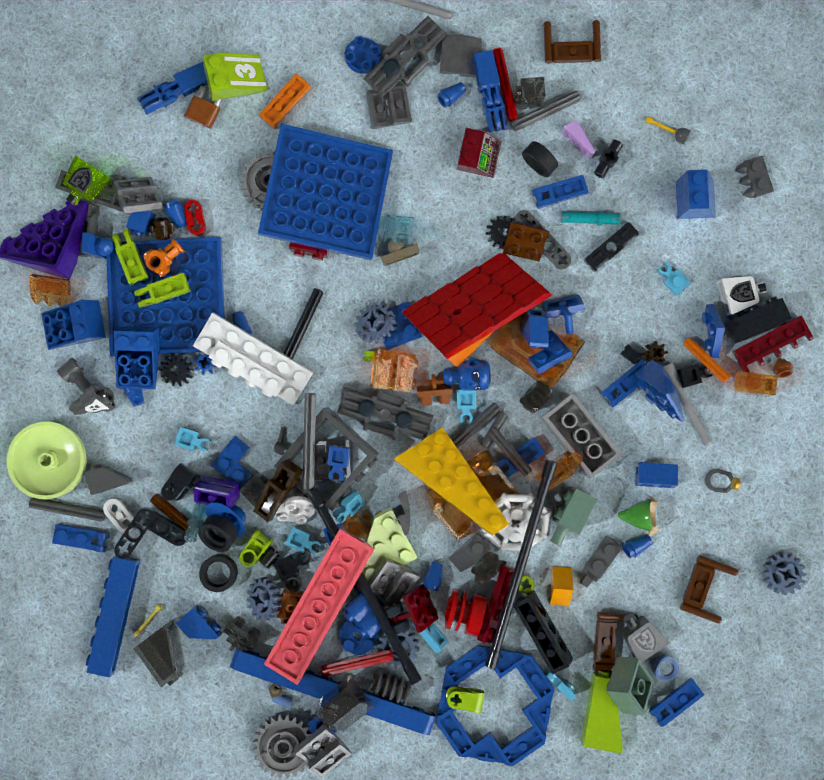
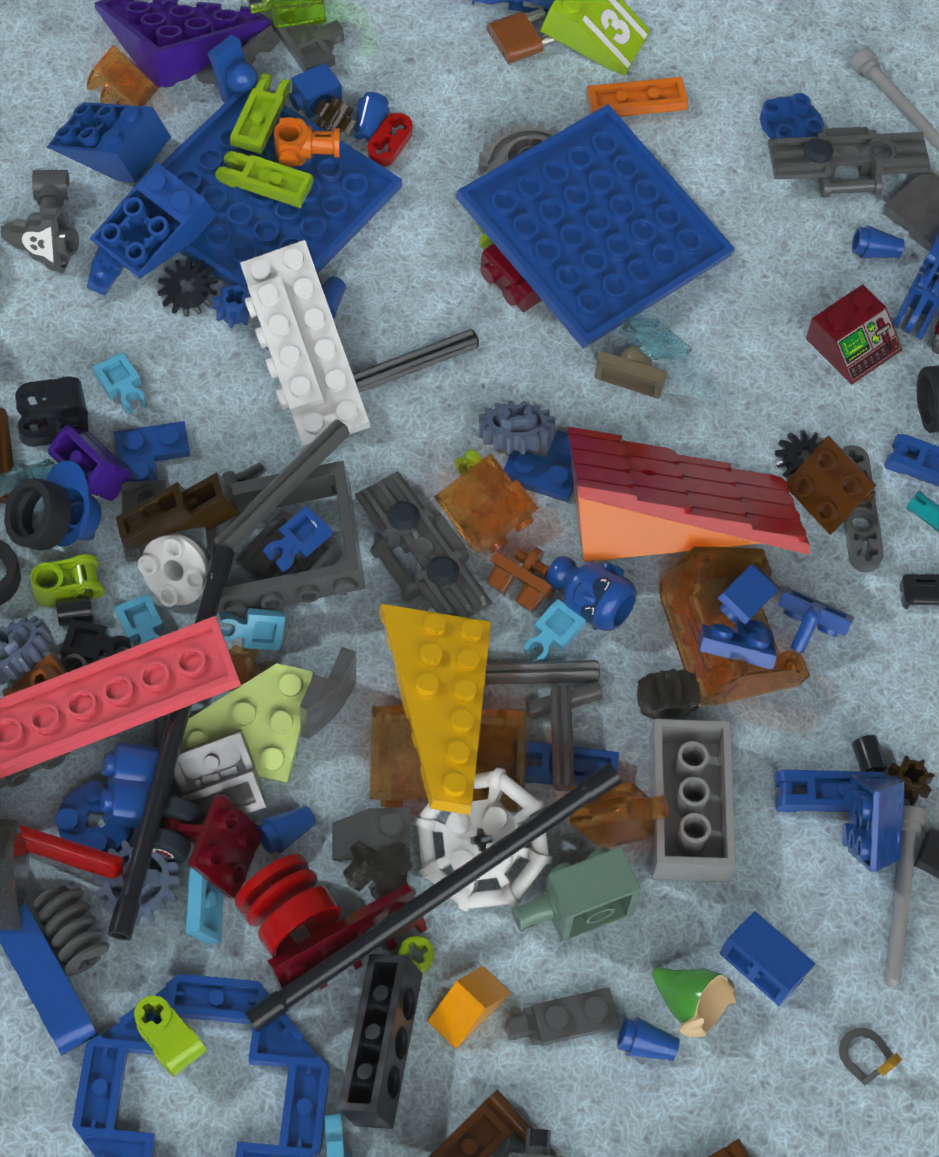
camera: 35 degrees right, 25 degrees down
(137, 195) = (341, 57): flat silver slope -> none
(397, 105) = (786, 211): flat silver slope -> none

